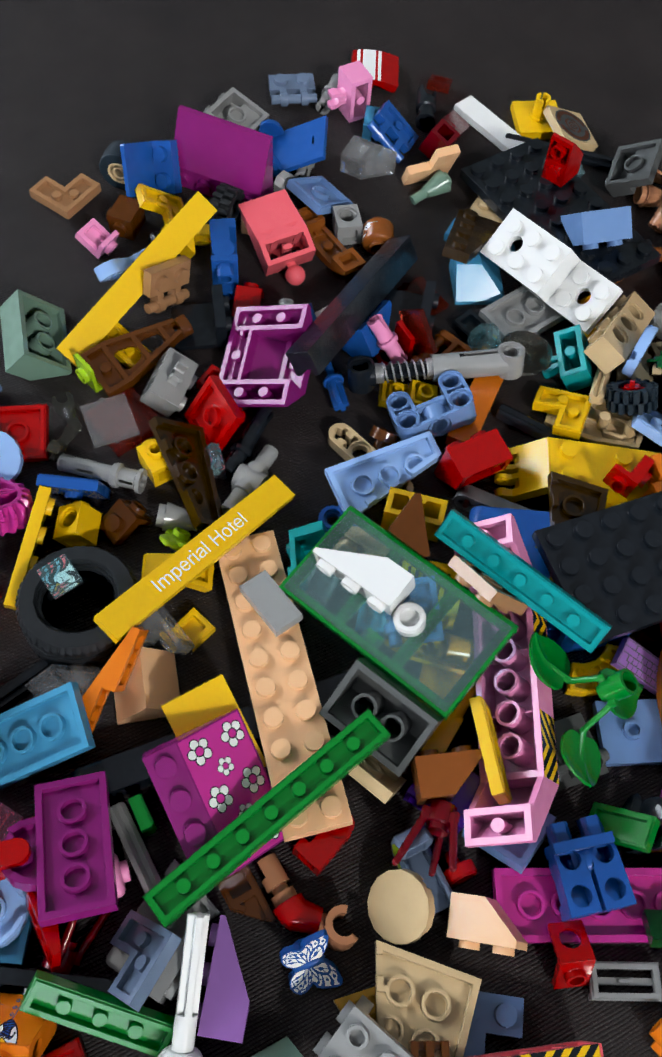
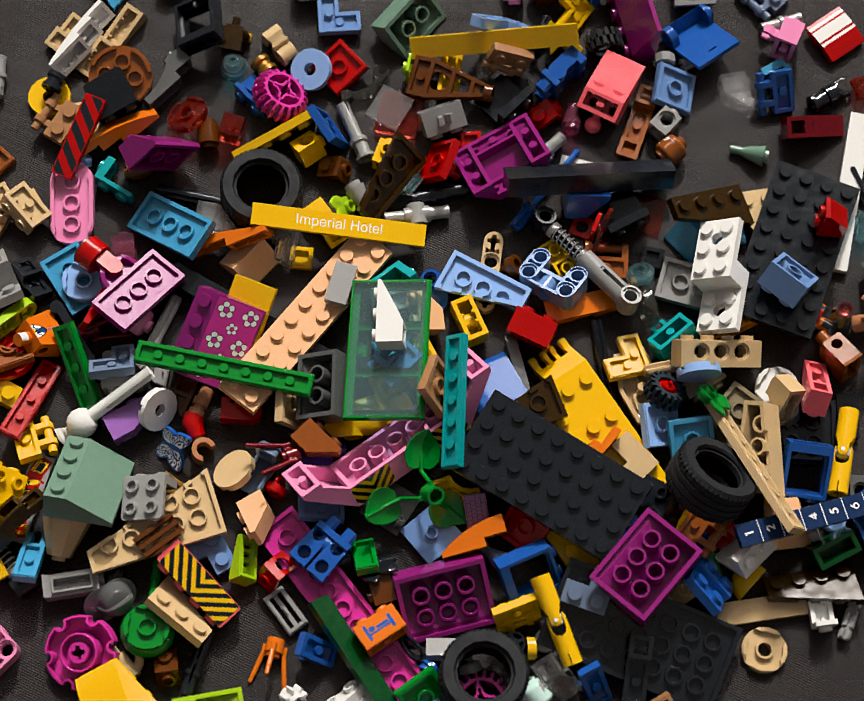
camera: 55 degrees right, 10 degrees up
(59, 576) = (263, 166): clear light blue tile -> none
(142, 815) = (181, 313): green tile -> none
(245, 946) = (165, 413): none -> white tile
(274, 286) = (571, 121): none -> clear pink cone
(386, 339) = (581, 217): bright pink pin -> none
(409, 619) = (382, 359): white tile -> none
(411, 526) = (443, 322): reddish brown slope -> none
(441, 160) = (763, 138): light nougat tile -> none
(490, 751) = (345, 453): yellow tile -> none
(529, 986) = (238, 573): none -> lime slope
(625, 482) = (595, 428): red bracket -> none
(645, 222) = (844, 311): none -> piece

